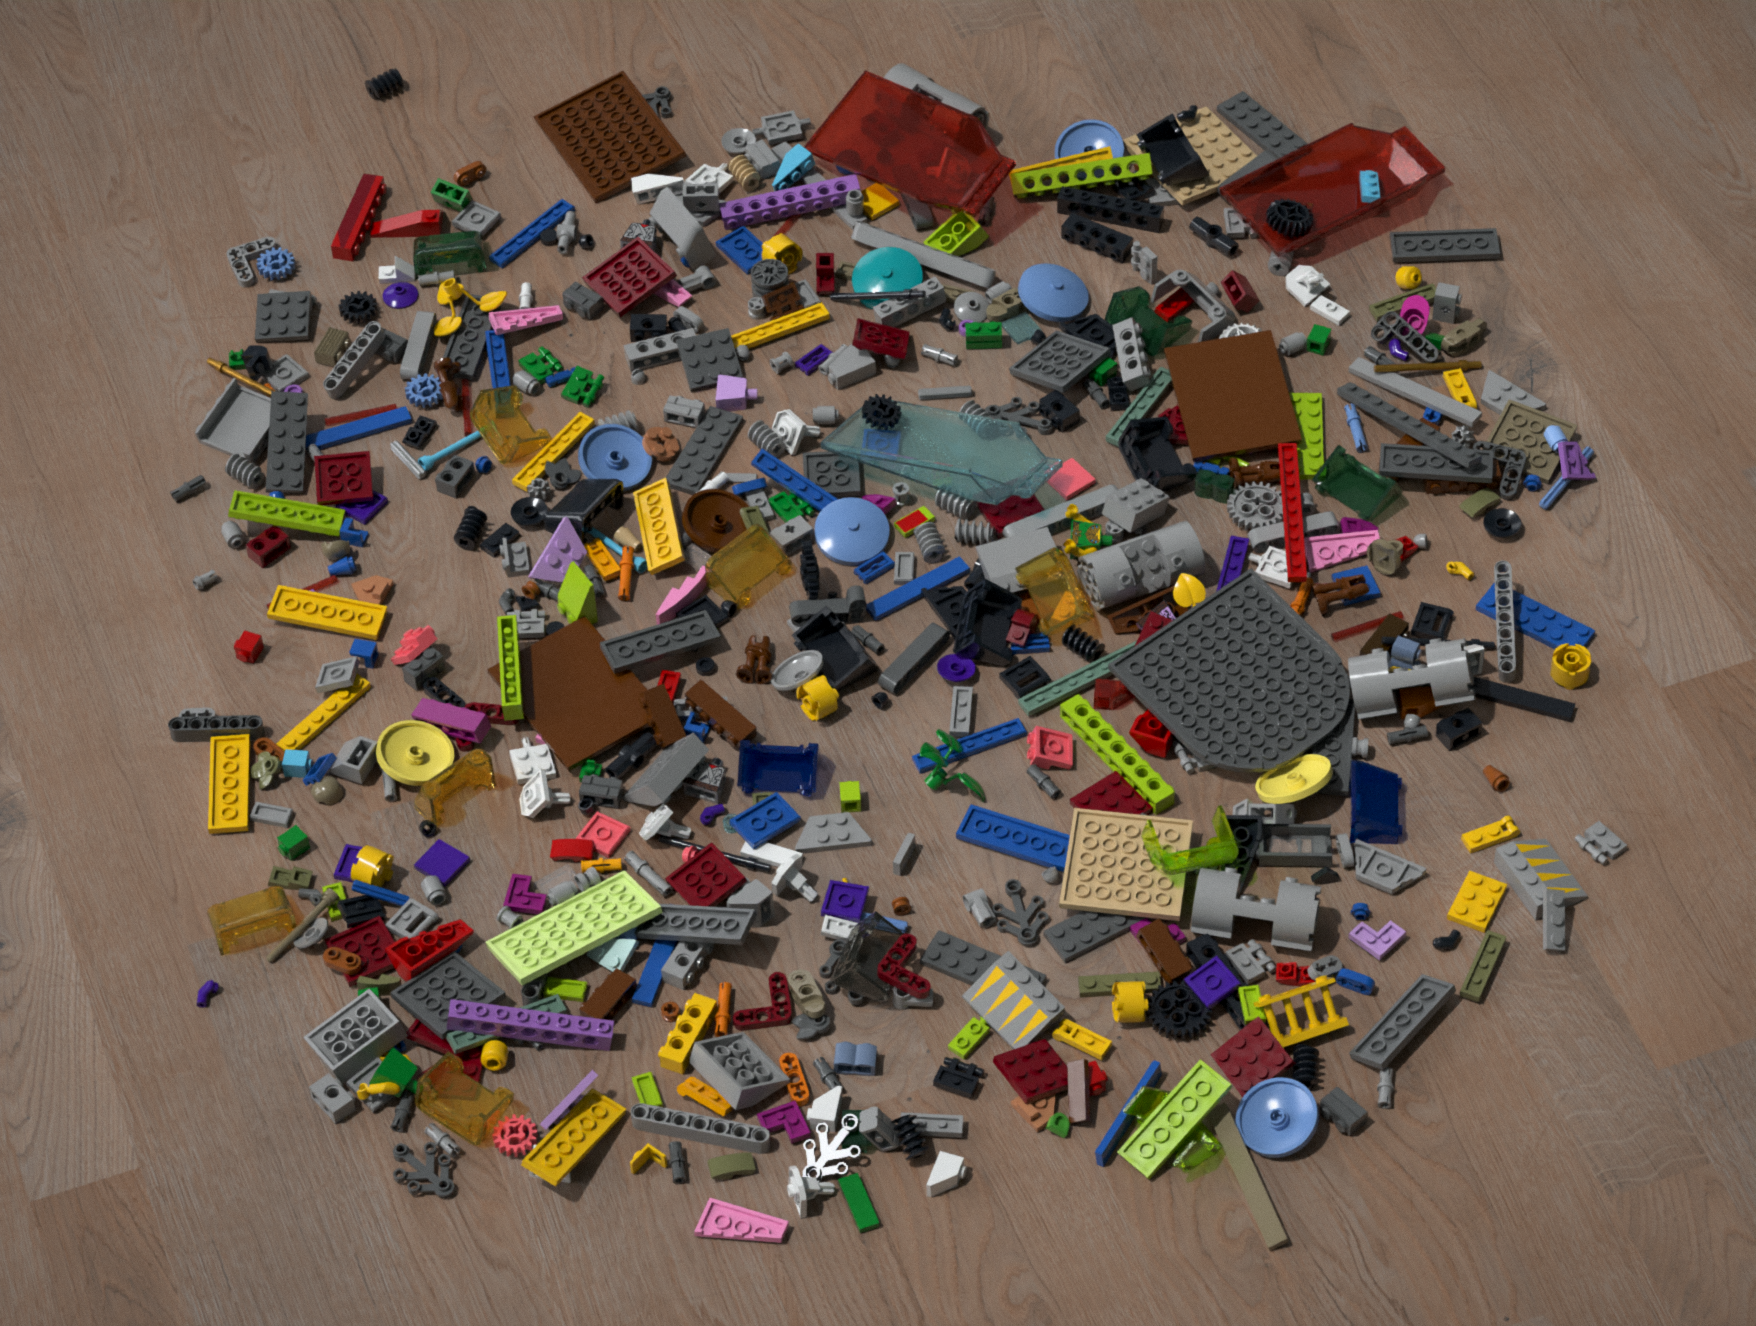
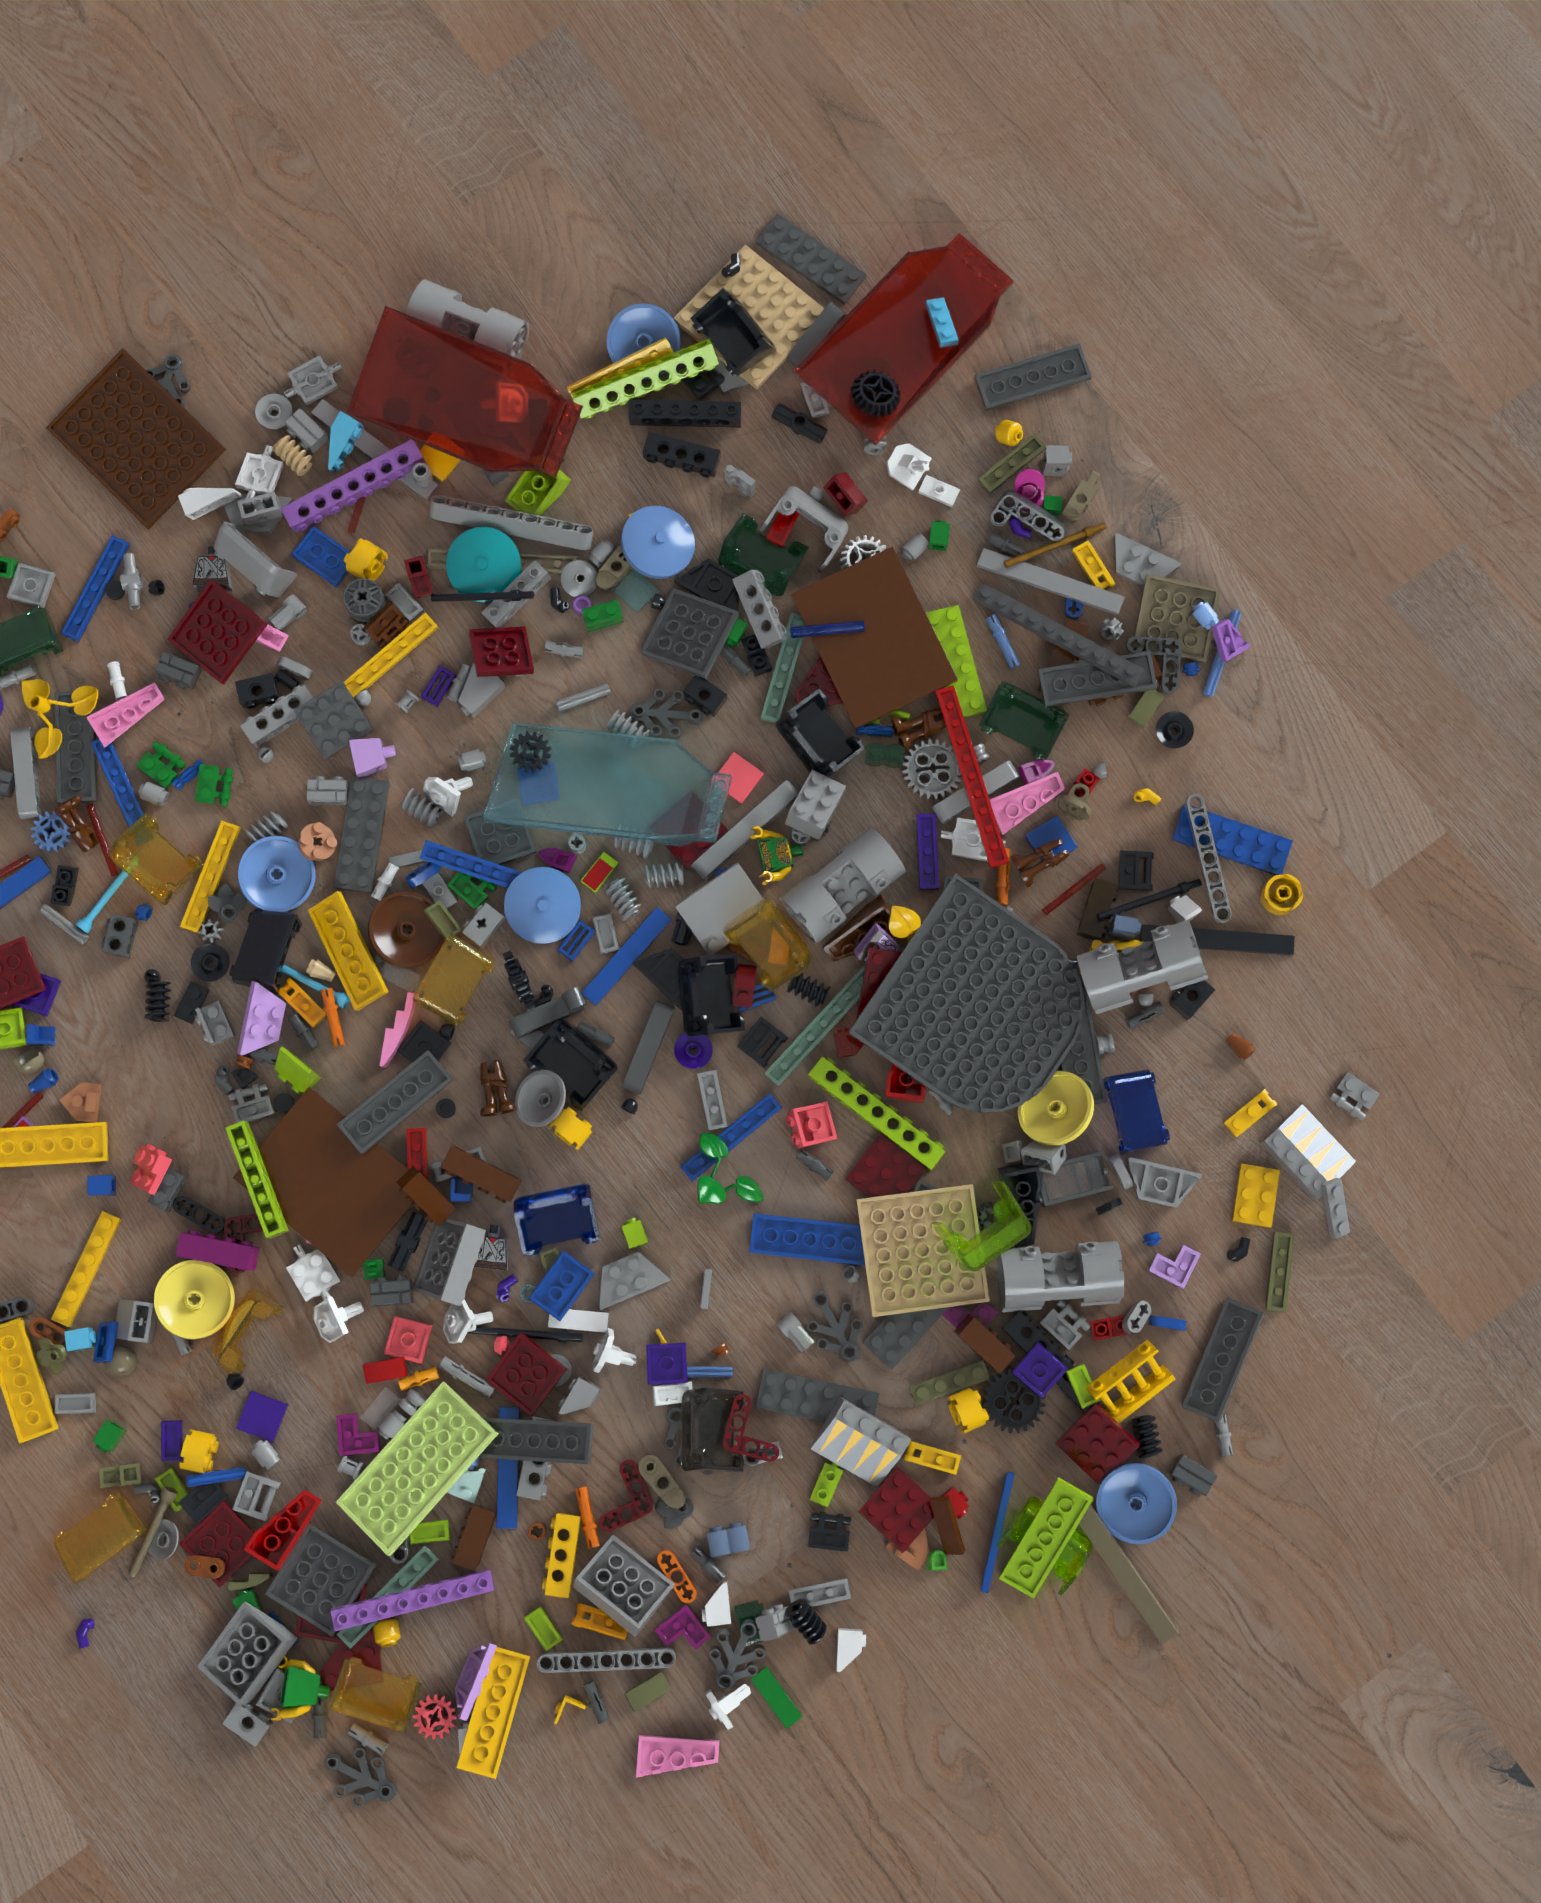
camera: 20 degrees left, 30 degrees up
(337, 674) = (84, 1222): light grey plate -> none
(586, 806) = (379, 1313): black hinge -> none
(1189, 377) = (827, 629): none -> clear blue axle

